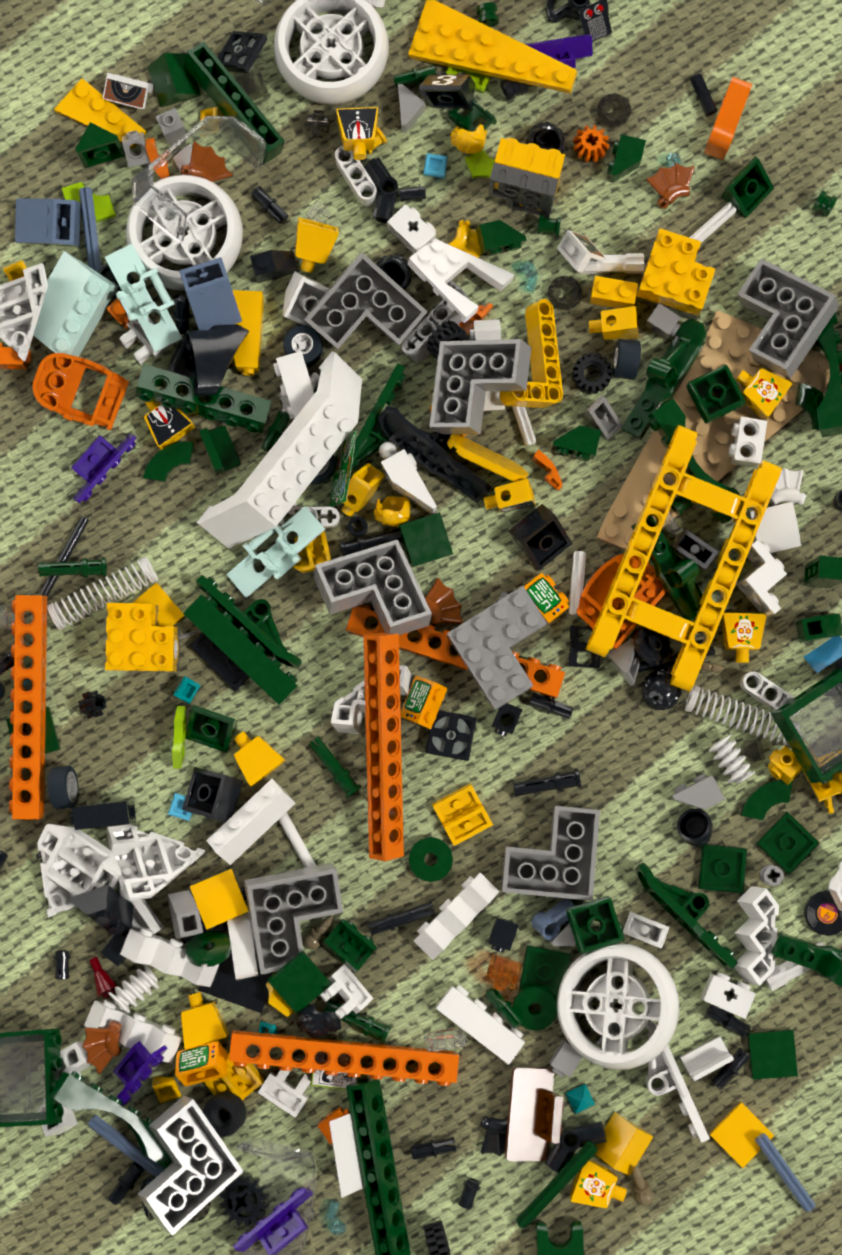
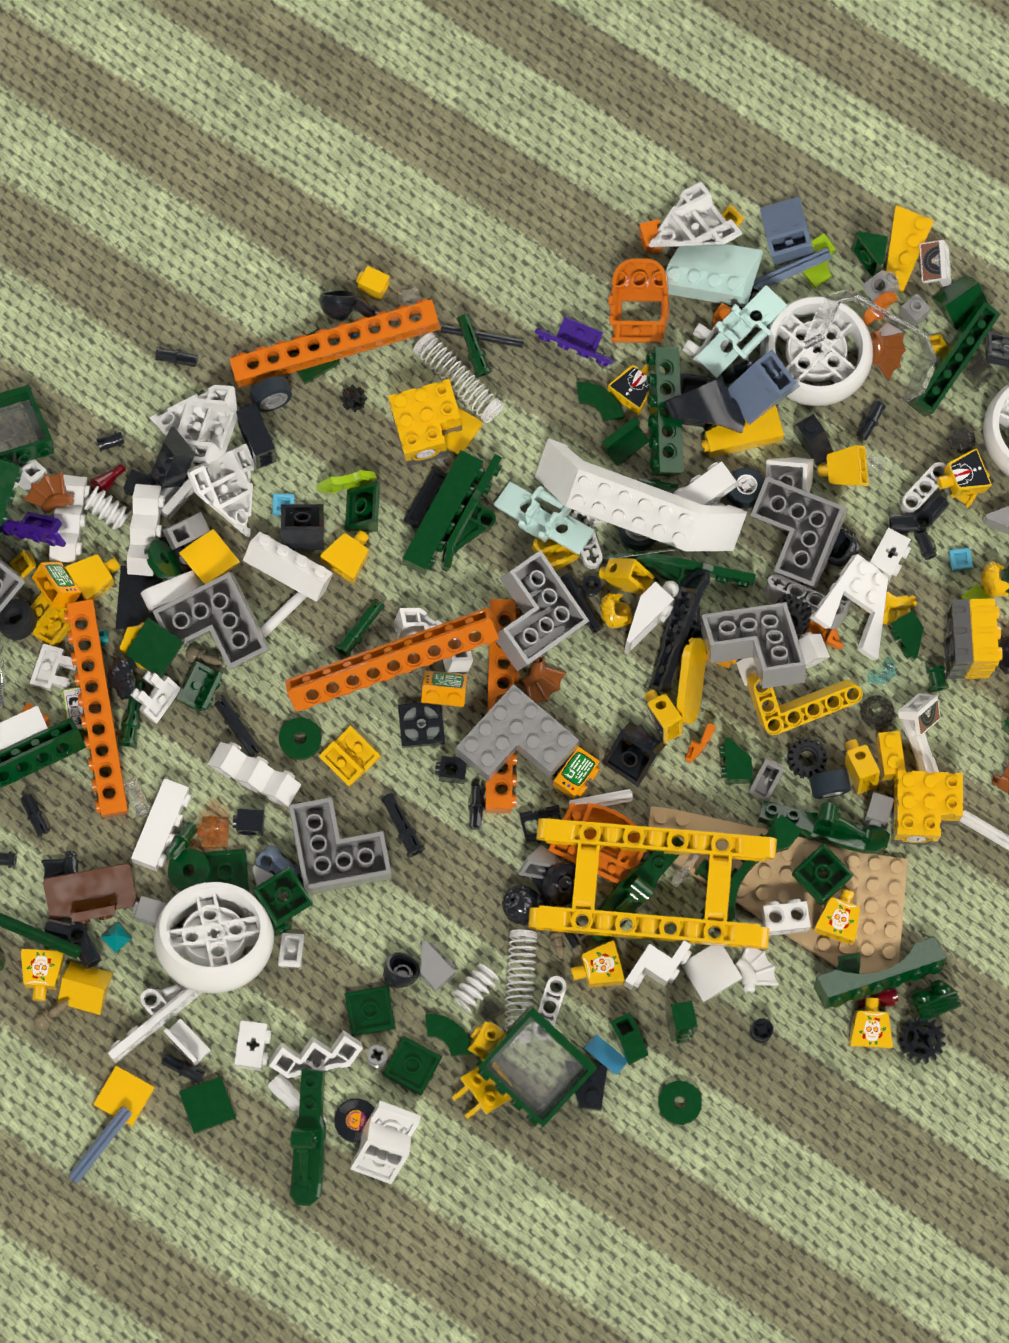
camera: 65 degrees right, 10 degrees down
(186, 689) = (392, 477): teal slope -> none
(425, 539) = (598, 649): dark green tile -> none
(524, 425) = (736, 711): white axle -> none
(680, 906) = (325, 975): dark green piece -> none
(694, 548) = (666, 894): black slope -> none
(727, 1020) = (227, 1052): black axle -> none
(795, 315) = (920, 926): light grey brick -> none

